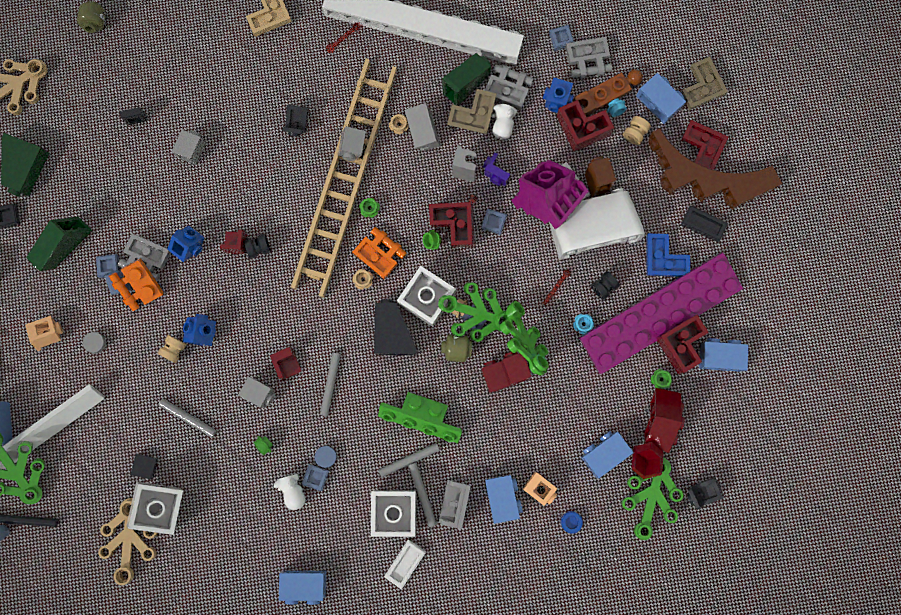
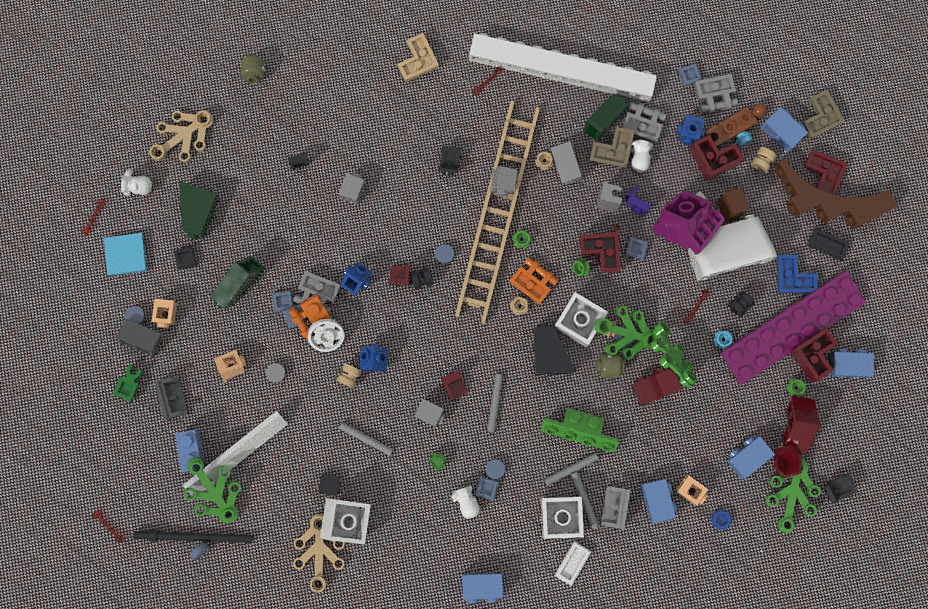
camera: 10 degrees left, 0 degrees up
(149, 303) = (326, 335): none -> white wheel
(285, 220) = (444, 254): none -> sand blue tile

